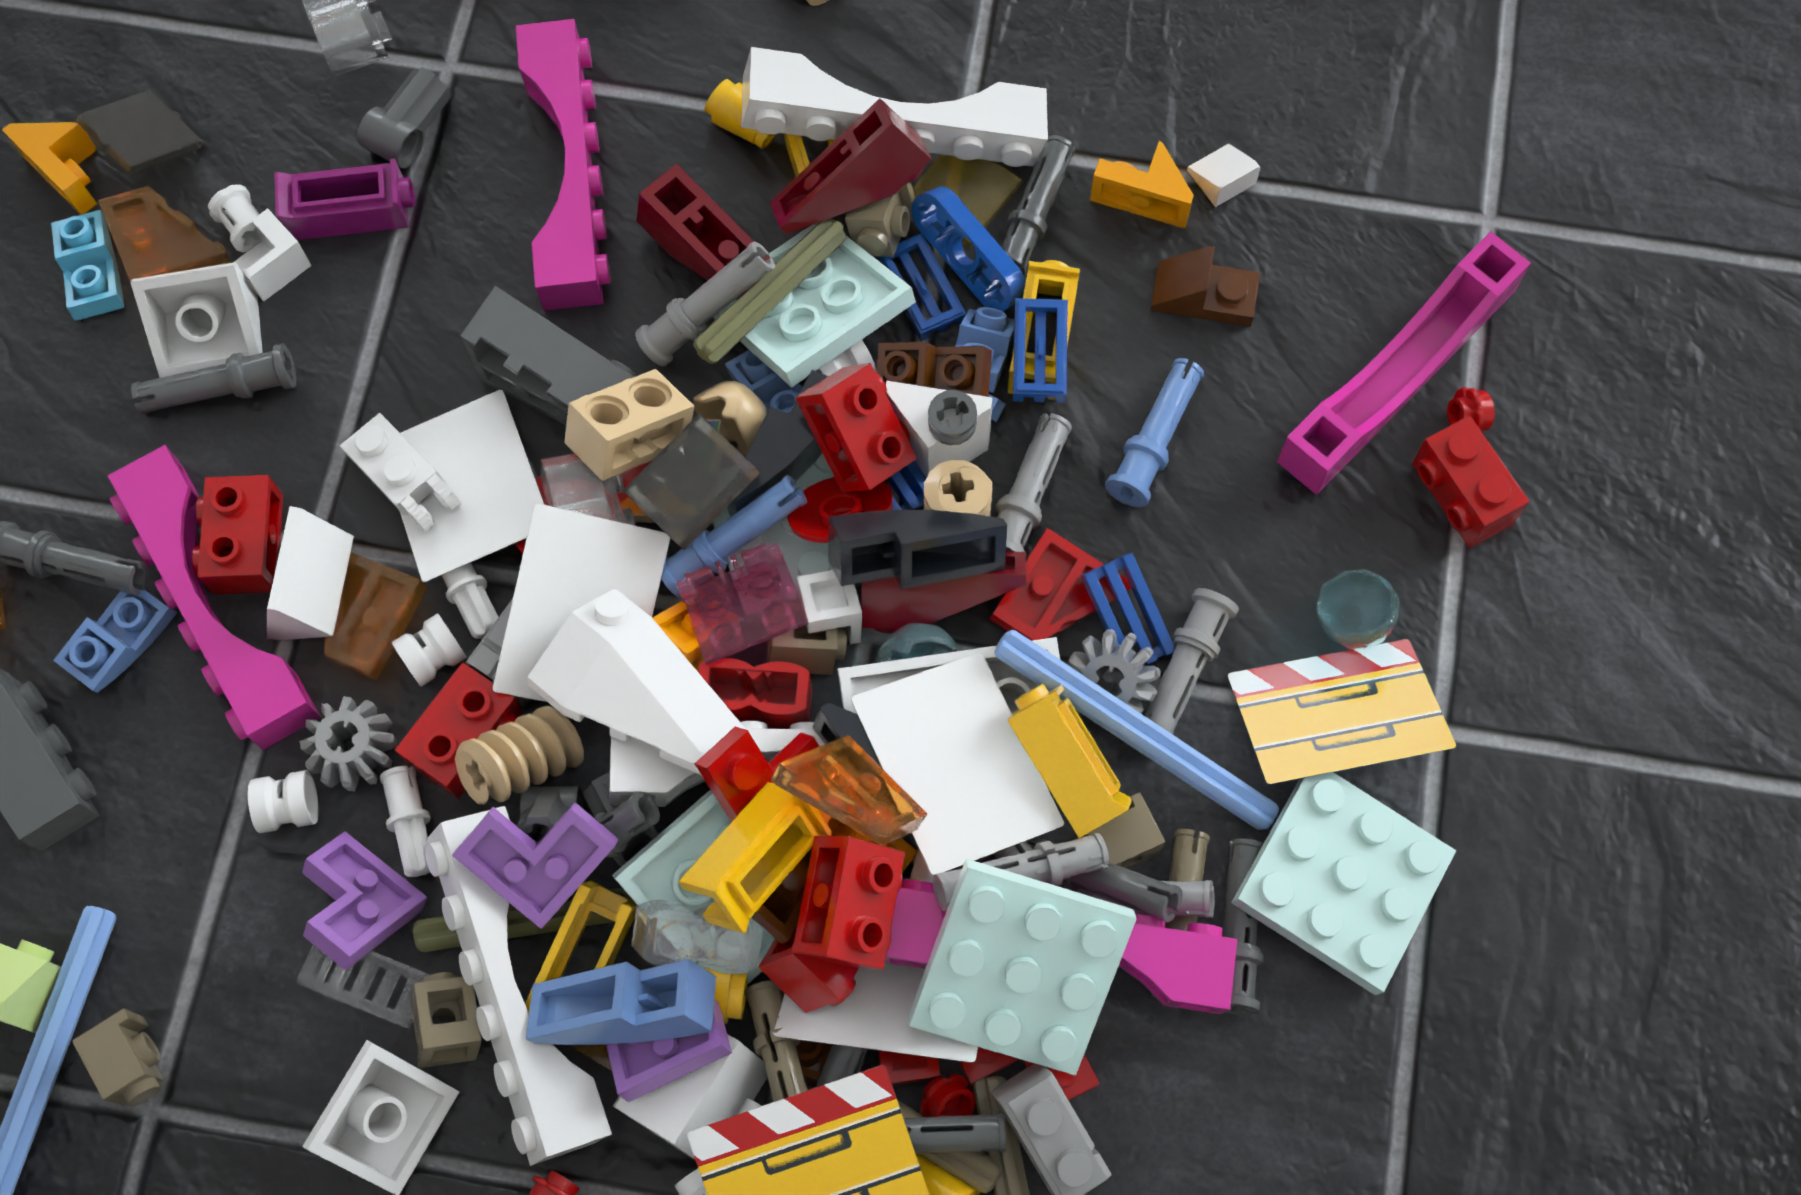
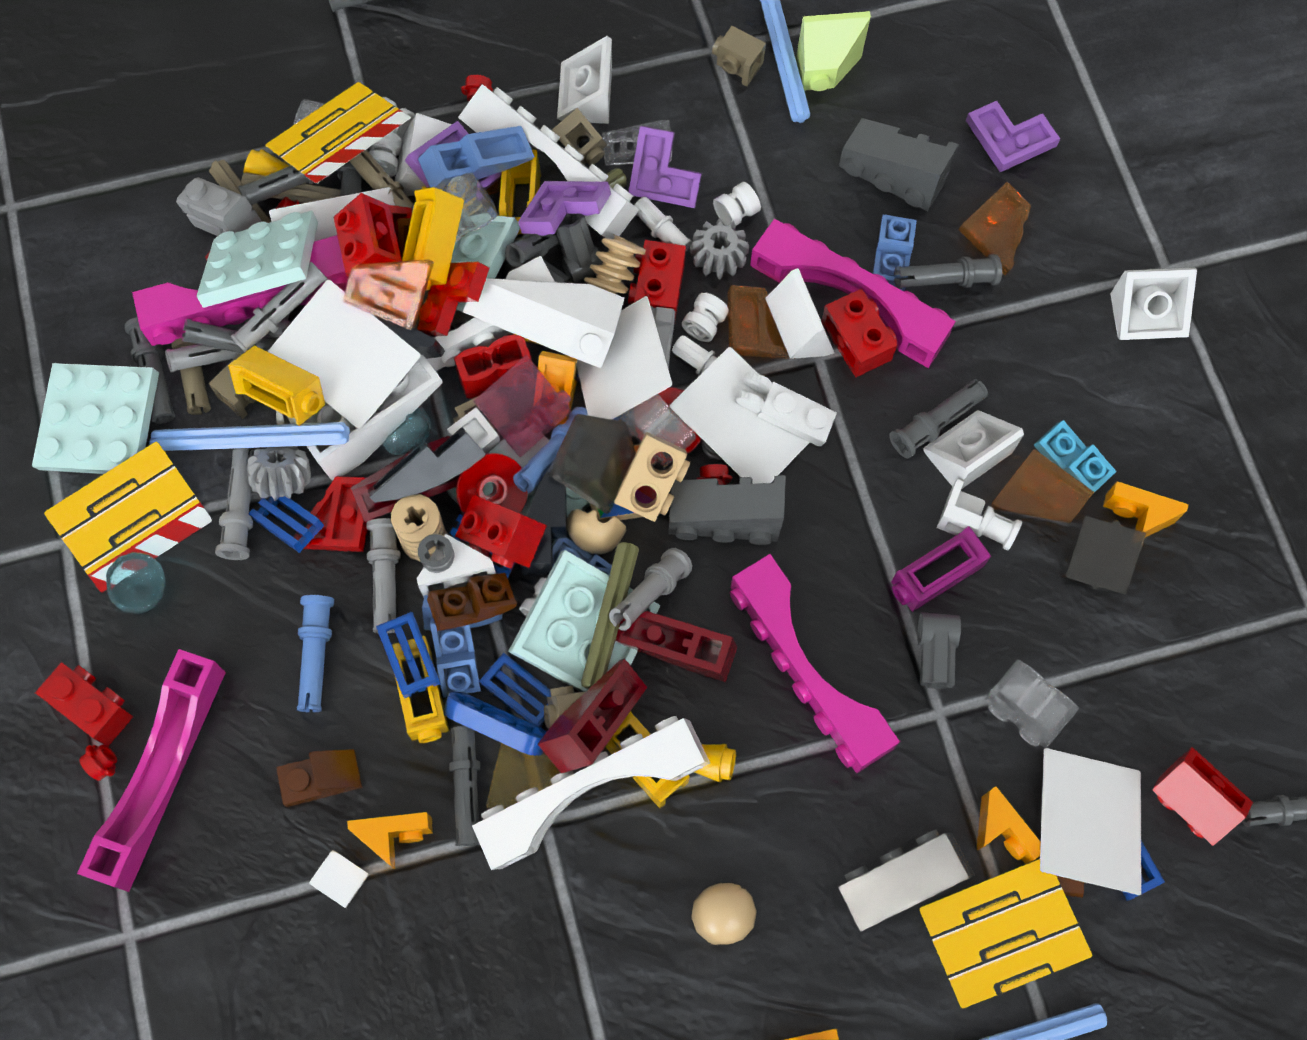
camera: 150 degrees right, 0 degrees up
(544, 432) = (715, 471): none -> red plate

